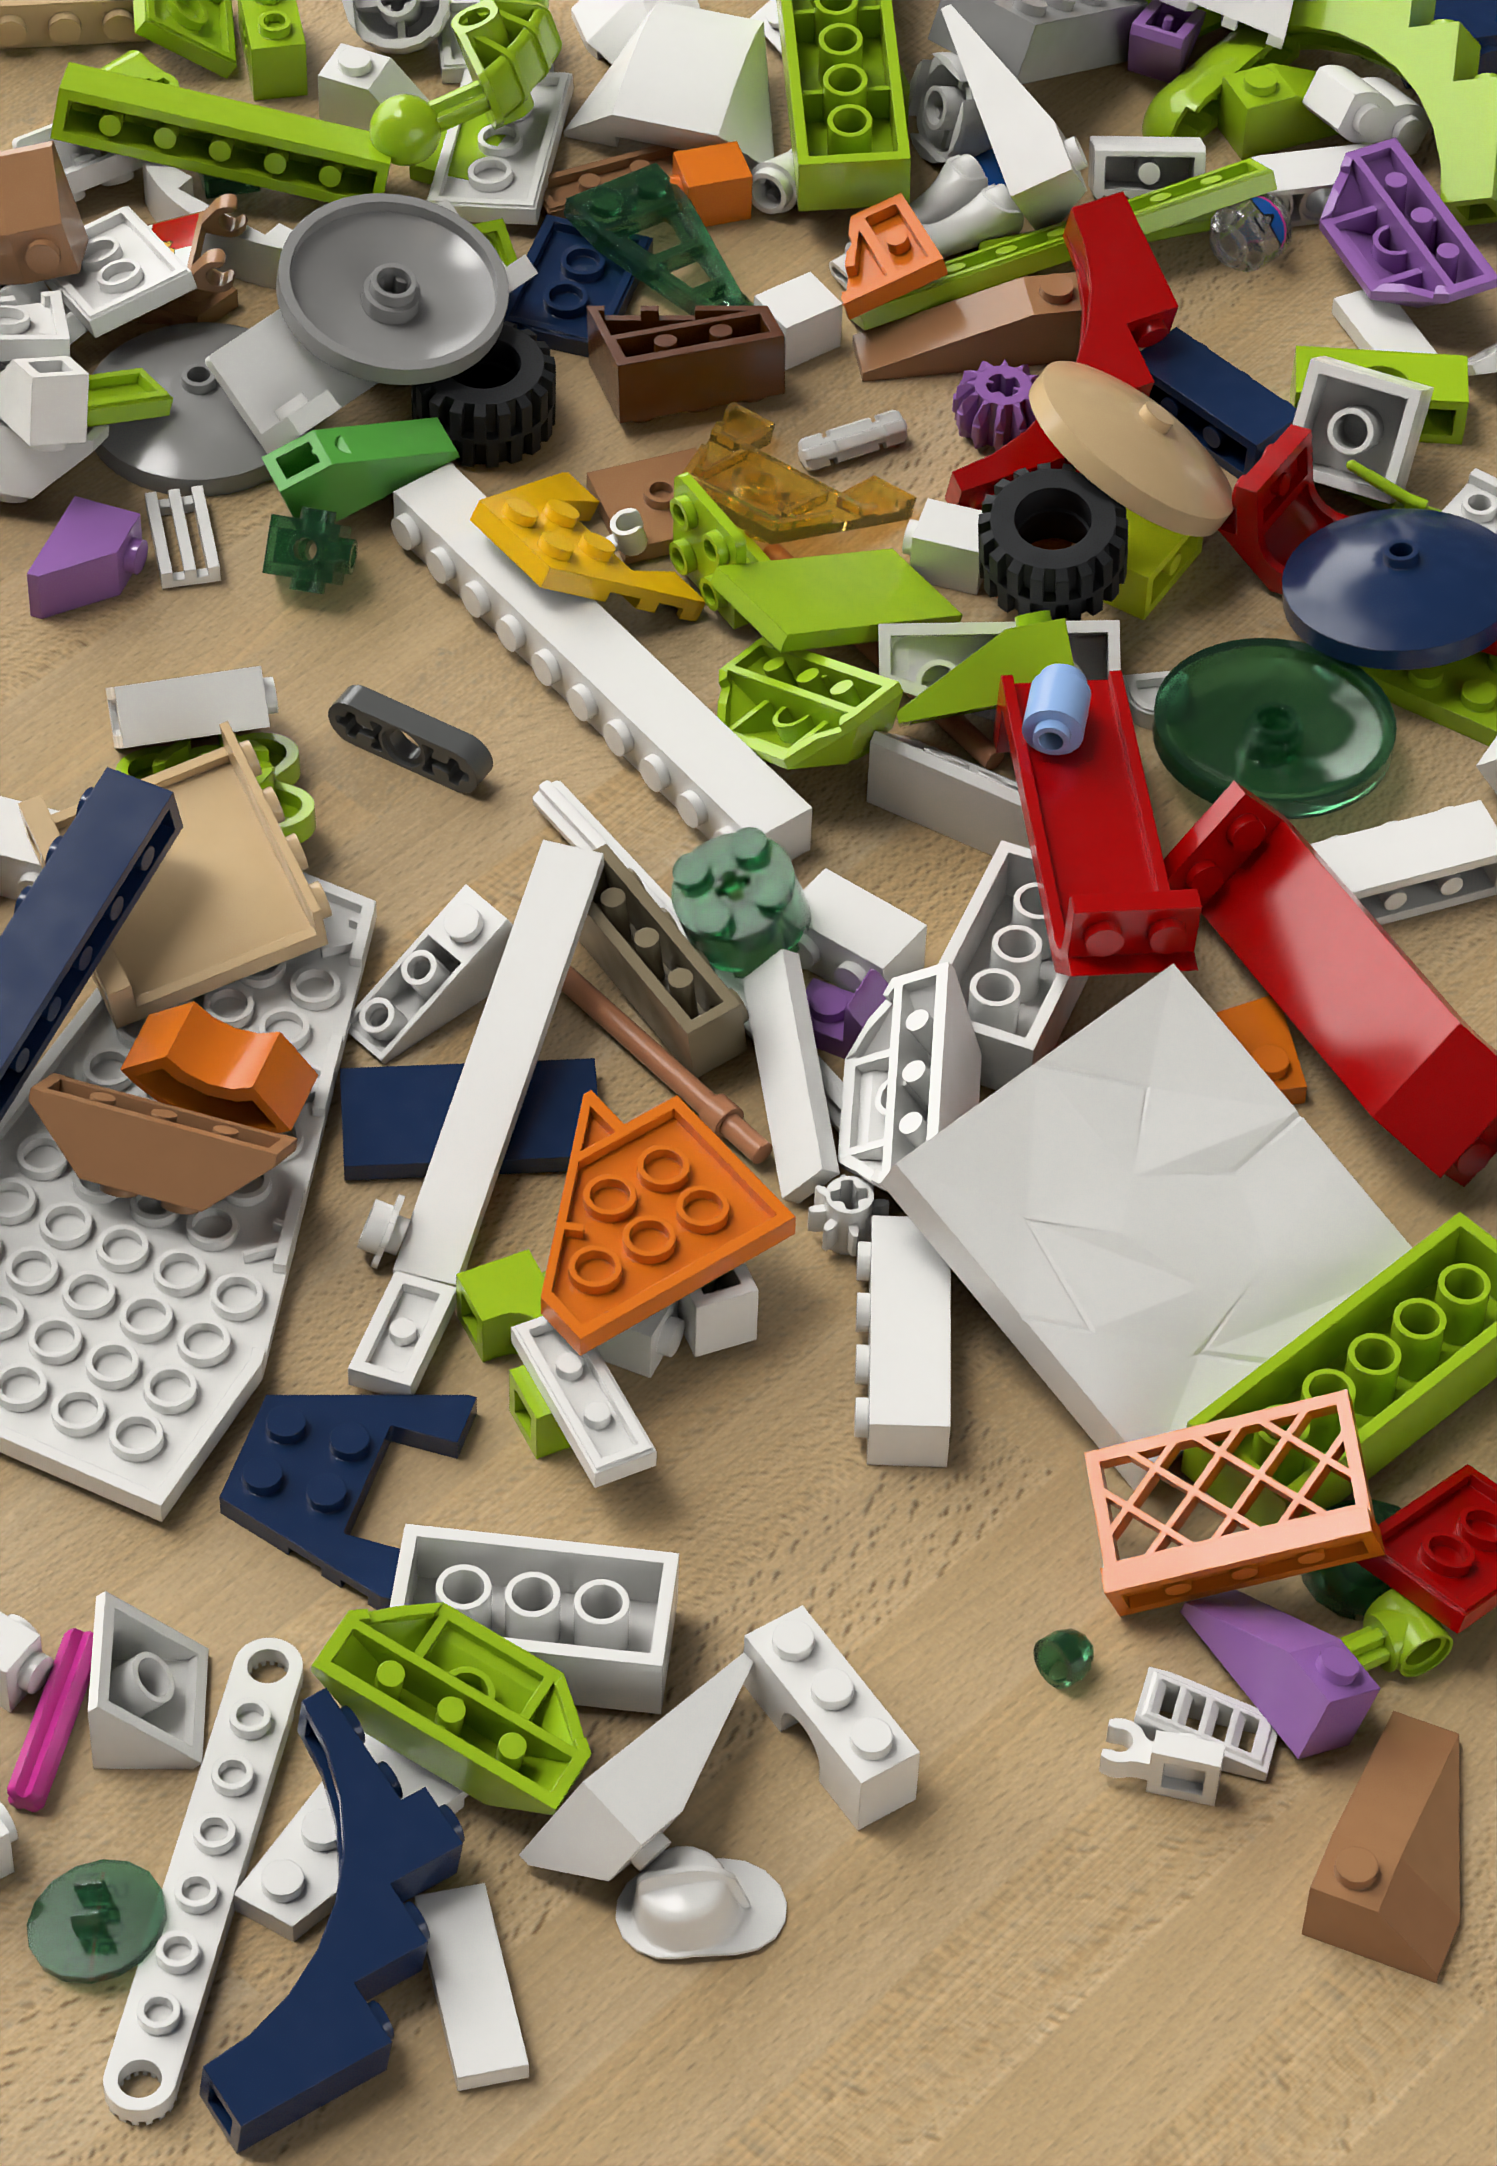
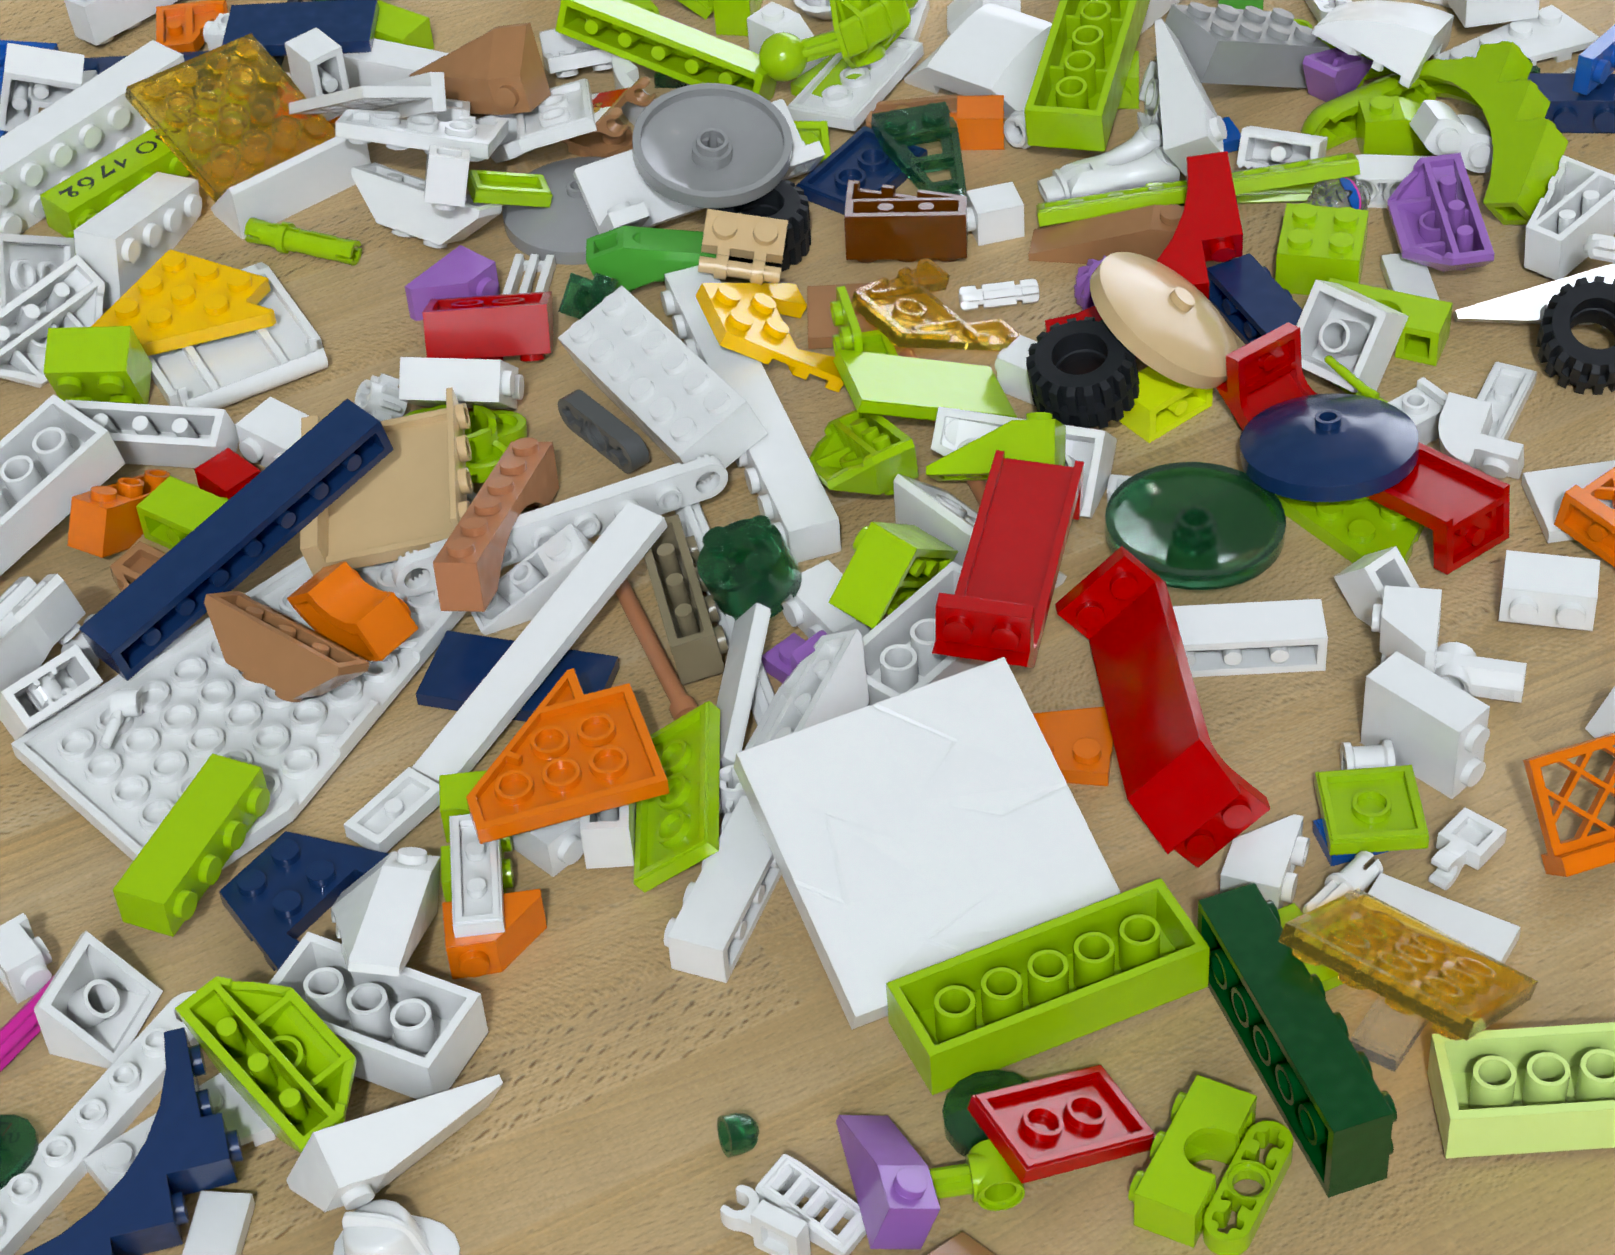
camera: 25 degrees right, 5 degrees down
(73, 751) = (380, 397): none -> white gear
(172, 1442) = (192, 845): none -> lime brick
(174, 612) = (490, 326): none -> red slope
(363, 908) = (473, 554): none -> nougat arch
(383, 1229) = (416, 738): white plate -> none
(408, 907) = (589, 512): none -> white plate
(479, 659) = (661, 383): none -> white brick
(490, 419) = (746, 238): none -> tan plate
(490, 1468) = (387, 912): none -> white wedge
(624, 1502) = (495, 952): none -> orange slope
(628, 532) = (808, 326): white hand -> none
(819, 1274) = (682, 825): none -> lime tile
(859, 1746) = (543, 1136): white arch -> none
(887, 256) = (1067, 179): orange wing -> none
(927, 874) = (888, 569): none -> lime wedge
(1057, 710) = (1019, 477): light blue brick -> none
(1243, 1557) = (896, 1089): fence -> none
(1258, 302) = (1320, 246): none -> lime brick

